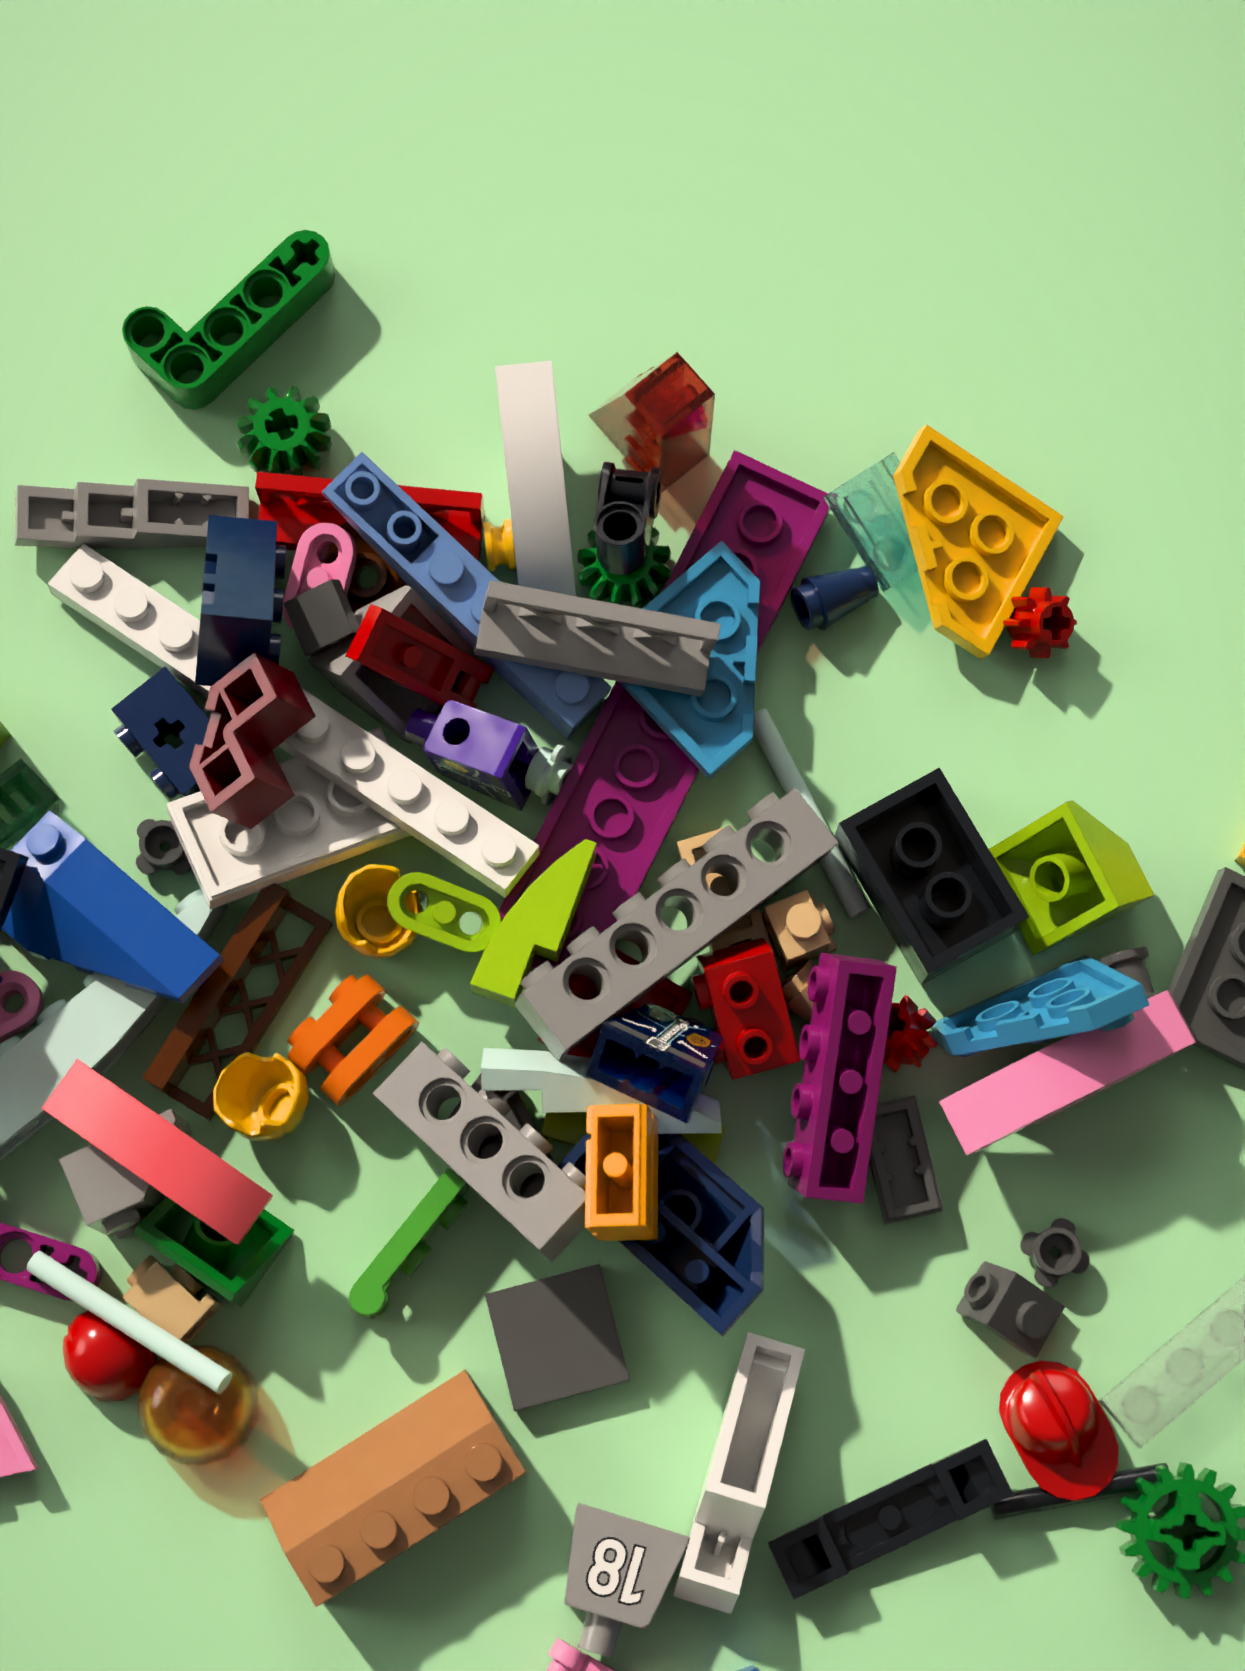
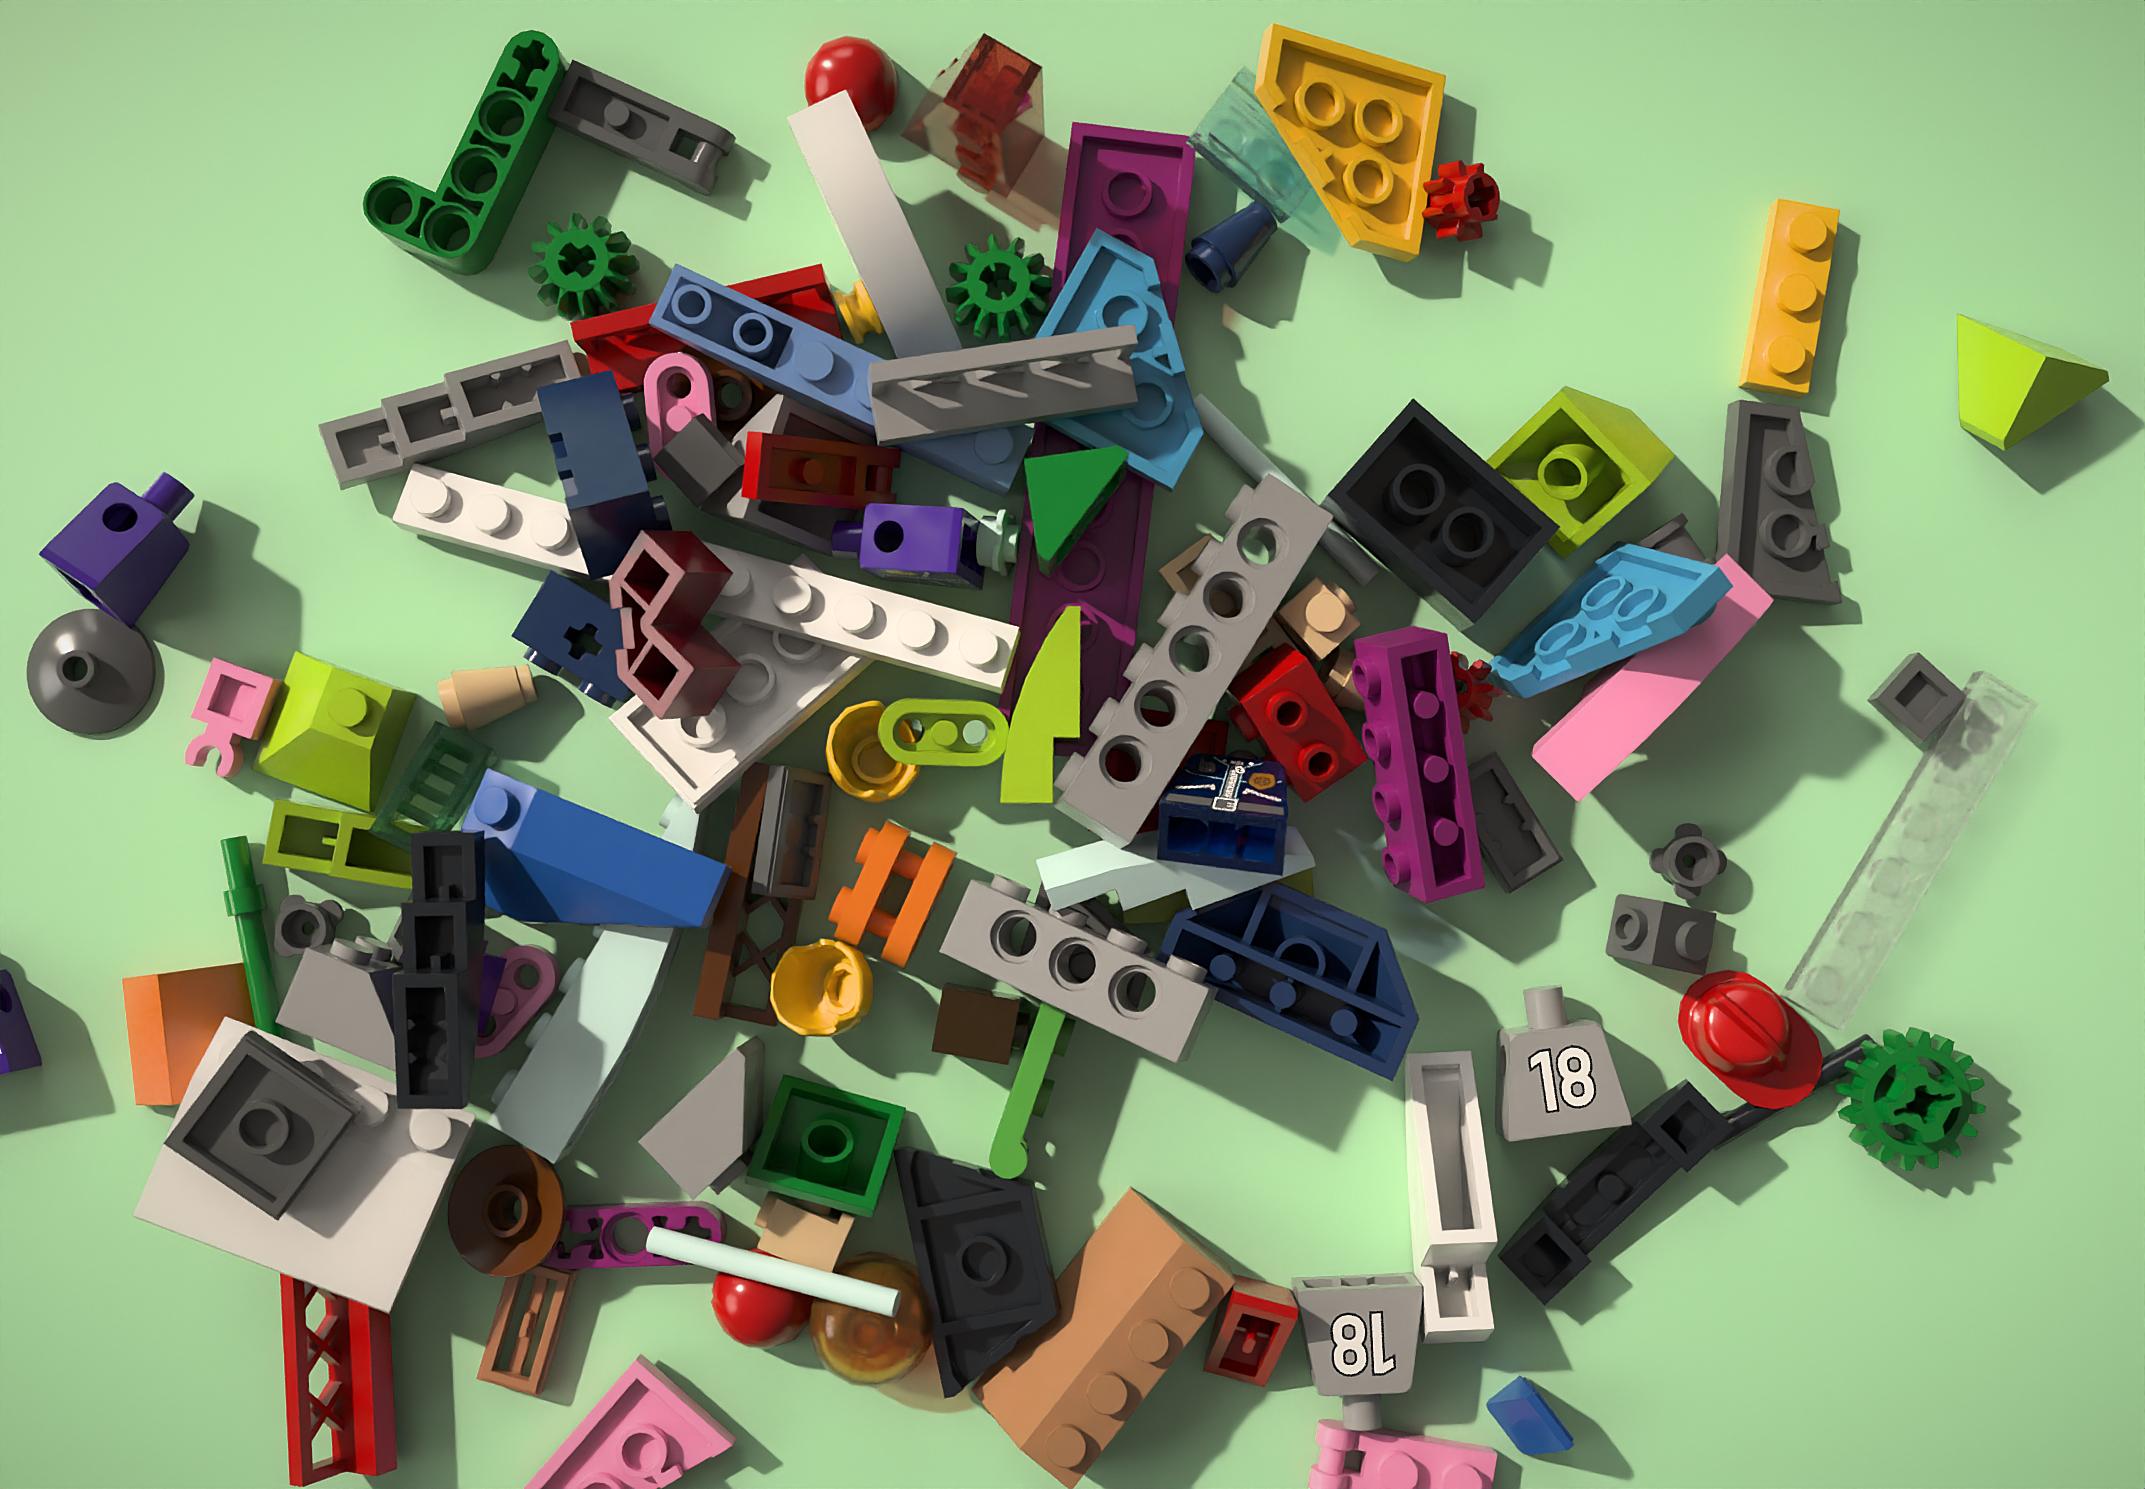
camera: 20 degrees left, 10 degrees up
(69, 753) = (485, 695): none -> tan cone
(151, 836) = (613, 774): dark grey plate -> none
(157, 1152) = (736, 1097): coral slope -> none
(284, 954) = (792, 833): none -> dark grey plate
(307, 1383) = (976, 1259): none -> black wing
(373, 336) = (639, 126): none -> dark grey plate
(384, 1175) = (979, 1024): none -> dark brown brick
(521, 1533) = (1250, 1330): none -> red slope
(557, 1337) = (1212, 1123): dark grey tile -> none
(573, 353) = (859, 69): none -> red hair
(618, 750) = (1067, 496): none -> green slope
(621, 1172) = (1233, 951): light orange brick -> none
(626, 508) = (985, 228): black piece -> none
(874, 1394) = (1555, 1073): none -> light grey torso

